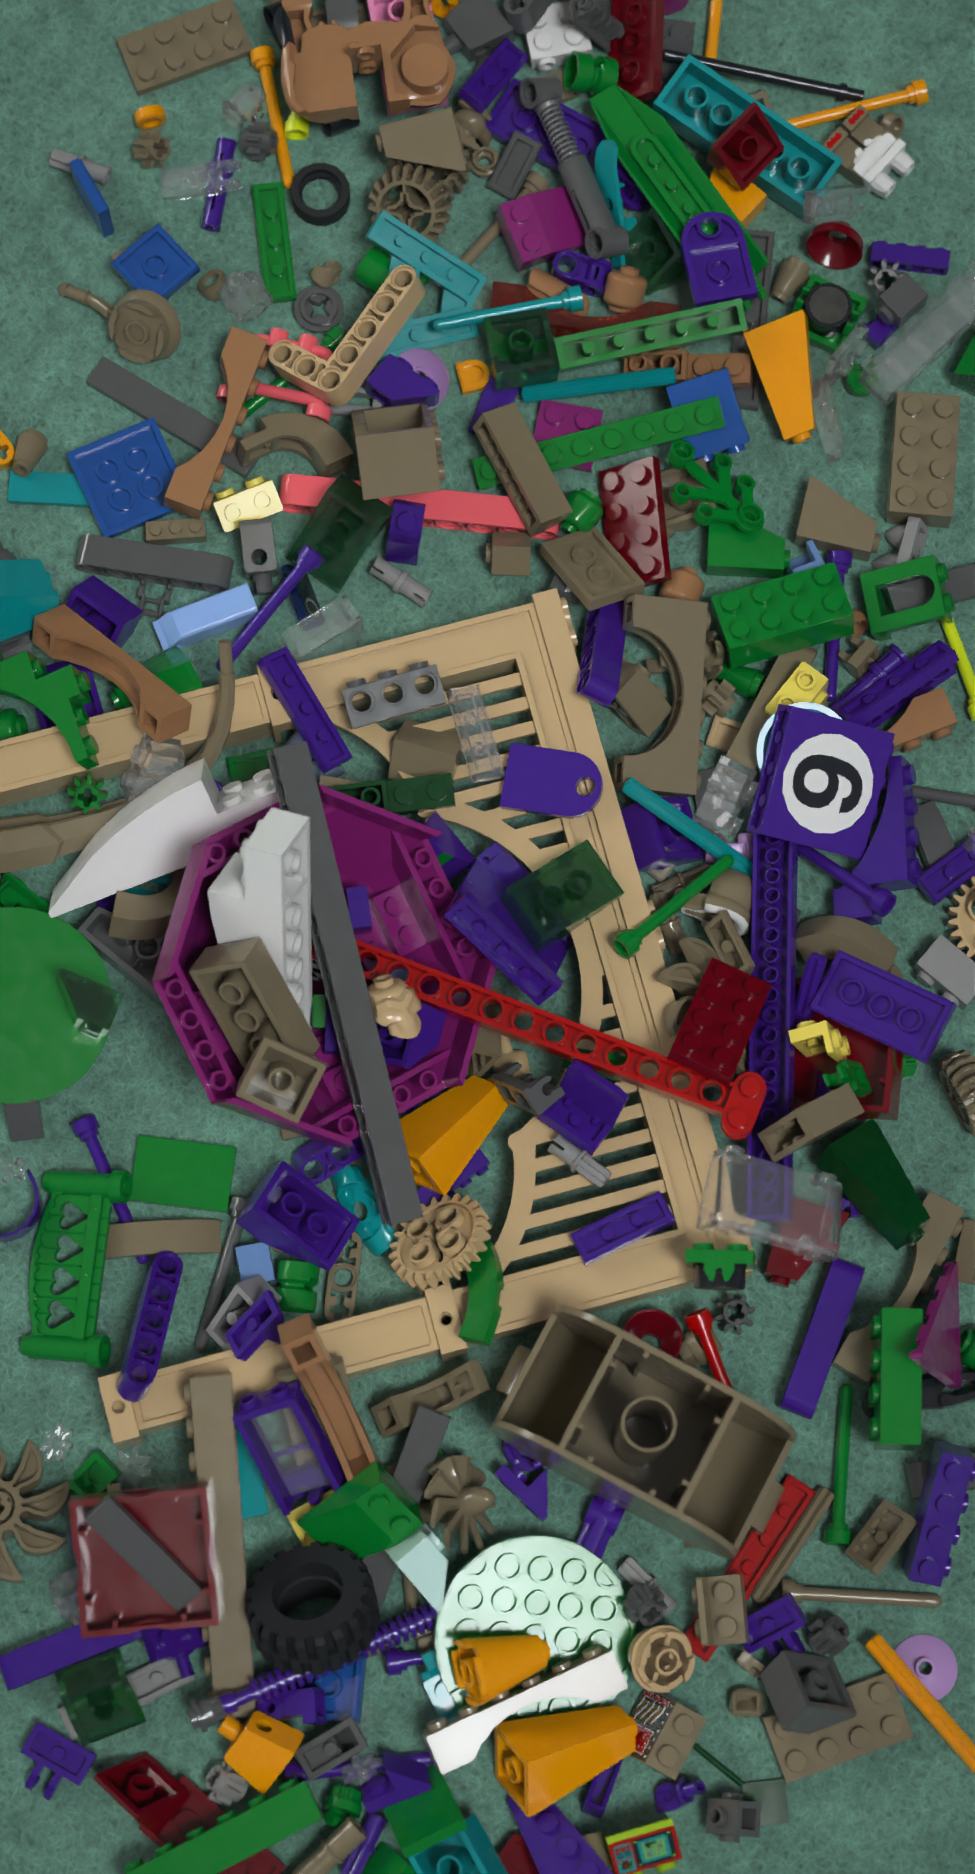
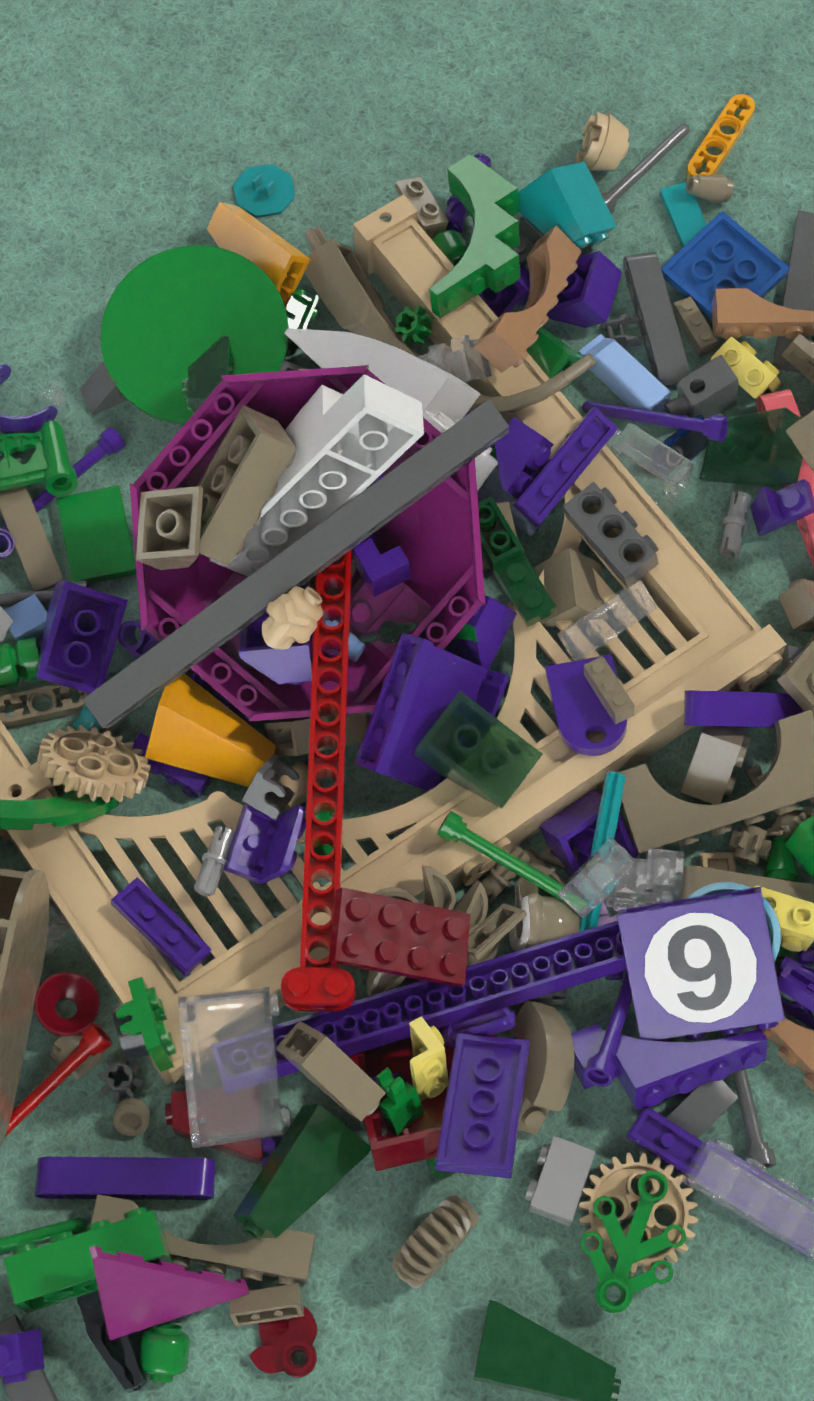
camera: 70 degrees right, 10 degrees down
(272, 734) = (520, 456): none -> dark purple slope
(411, 931) = (388, 633): none -> piece
(550, 758) = (609, 690): none -> dark tan piece
(714, 838) = (596, 877): none -> clear slope
(770, 1315) = (131, 1117): none -> dark tan tile

